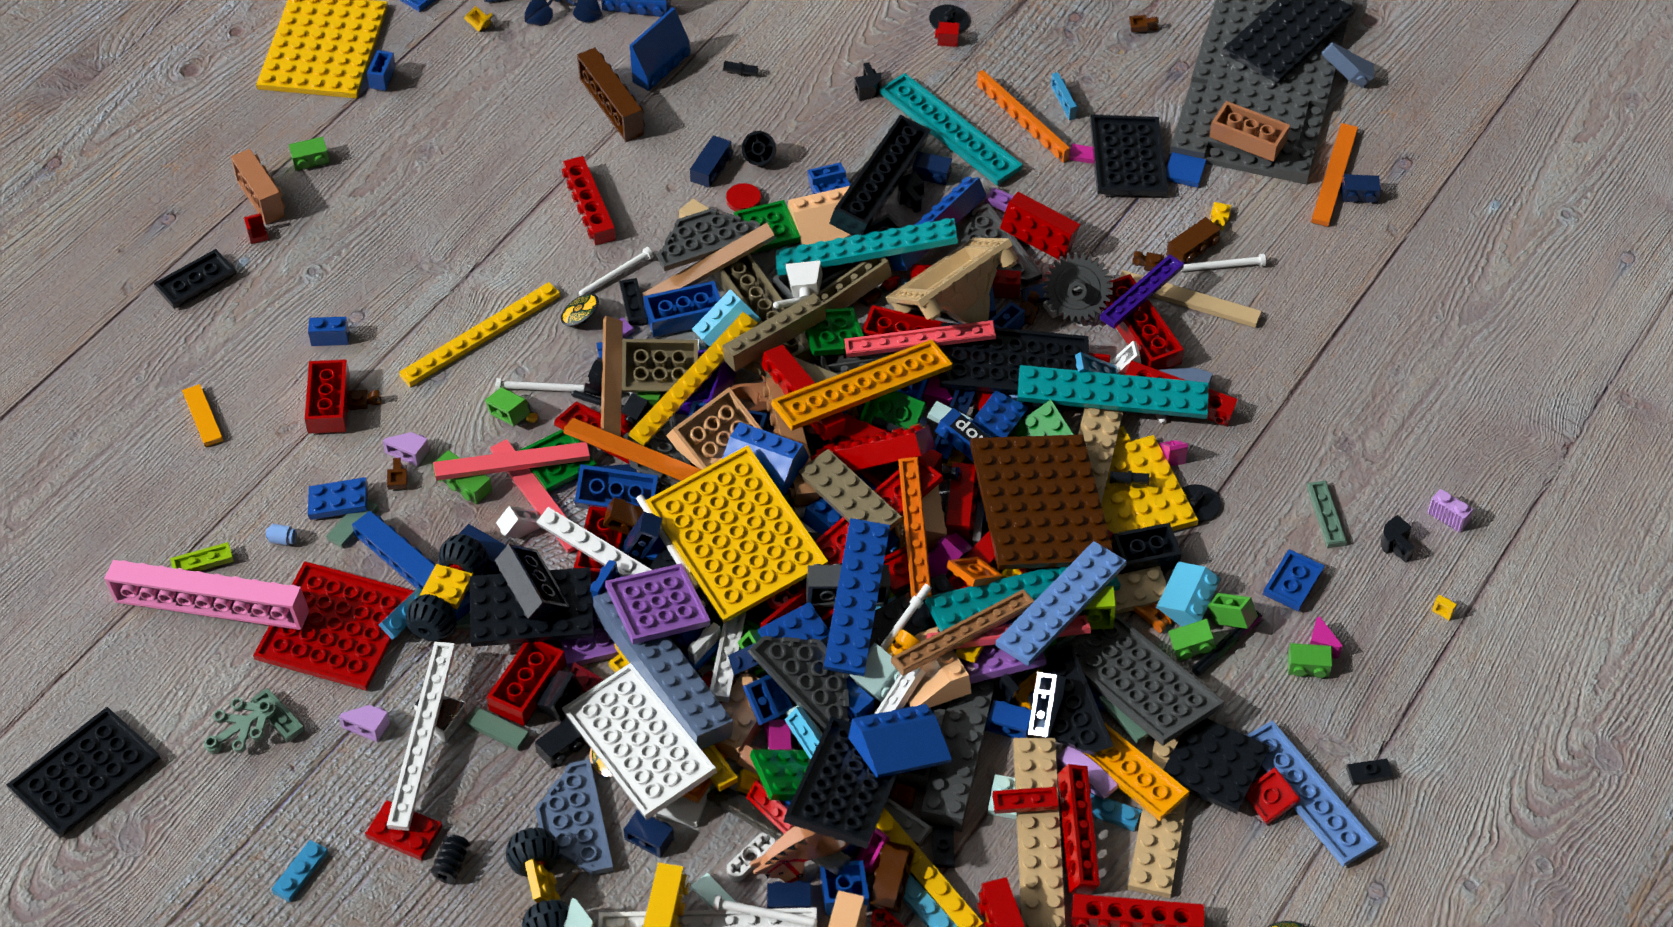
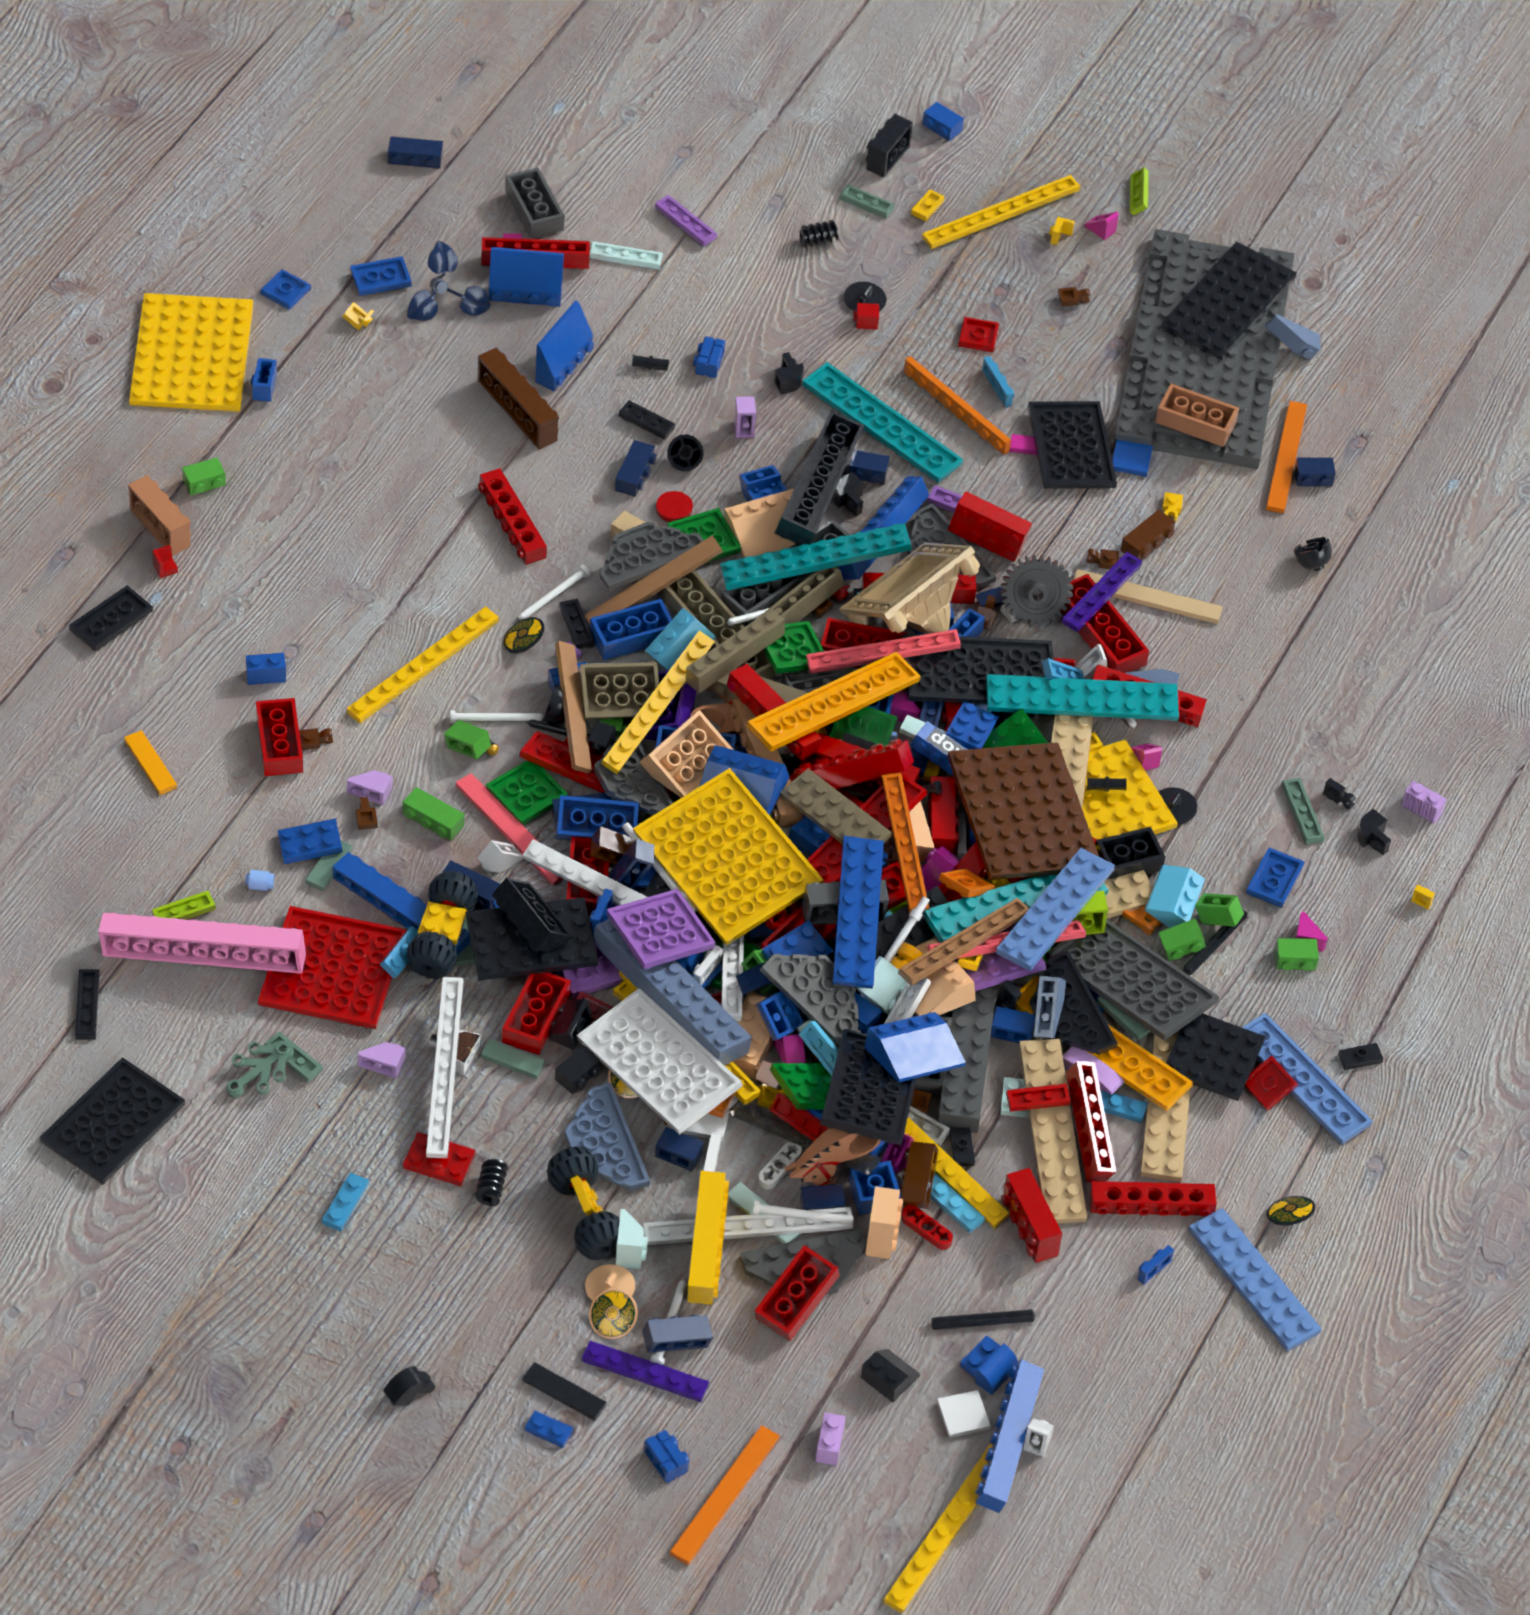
camera: 10 degrees left, 0 degrees up
(87, 650) = (87, 1004): none -> black tile
(511, 461) = (483, 795): coral tile -> none
(629, 450) = (606, 779): orange tile -> none
(682, 842) = (713, 1152): none -> white beam
(729, 118) = (646, 419): none -> black plate
(796, 65) = (709, 357): none -> blue brick
(804, 278) = (756, 593): white torso -> none
(820, 118) = (745, 417): none -> lavender brick
(1051, 54) = (978, 334): none -> red tile
(1226, 263) = (1218, 552): white bar -> none
(1355, 264) = (1314, 554): none -> black cylinder
(1363, 498) = (1336, 792): none -> black plate

